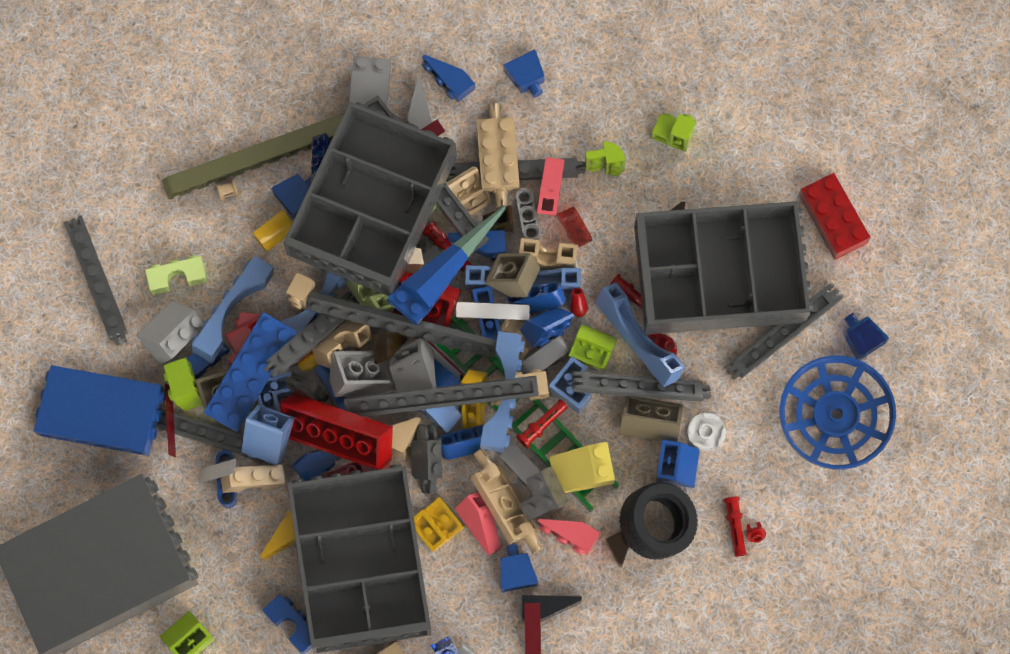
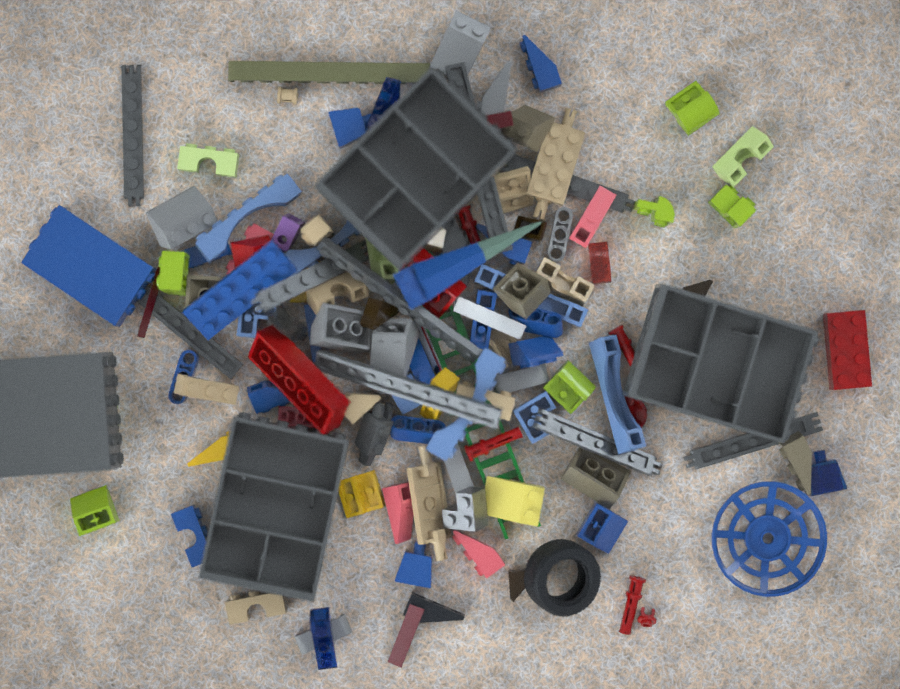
camera: 15 degrees right, 15 degrees up
(217, 471) = (176, 371): white sticker -> none
(266, 434) = (234, 355): medium blue slope -> none
(273, 231) = (316, 154): yellow brick -> none
(276, 303) = (290, 228): none -> medium lavender torso
(463, 131) = (529, 127): none -> dark tan slope
(526, 73) = (615, 91): blue torso -> none
(578, 303) = (572, 340): red cone -> none
(602, 61) = (692, 107): none -> lime brick
(669, 71) = (751, 144): none -> yellowish green arch
(708, 437) = (643, 500): white tile -> none
(832, 327) = (800, 460): none -> dark tan slope

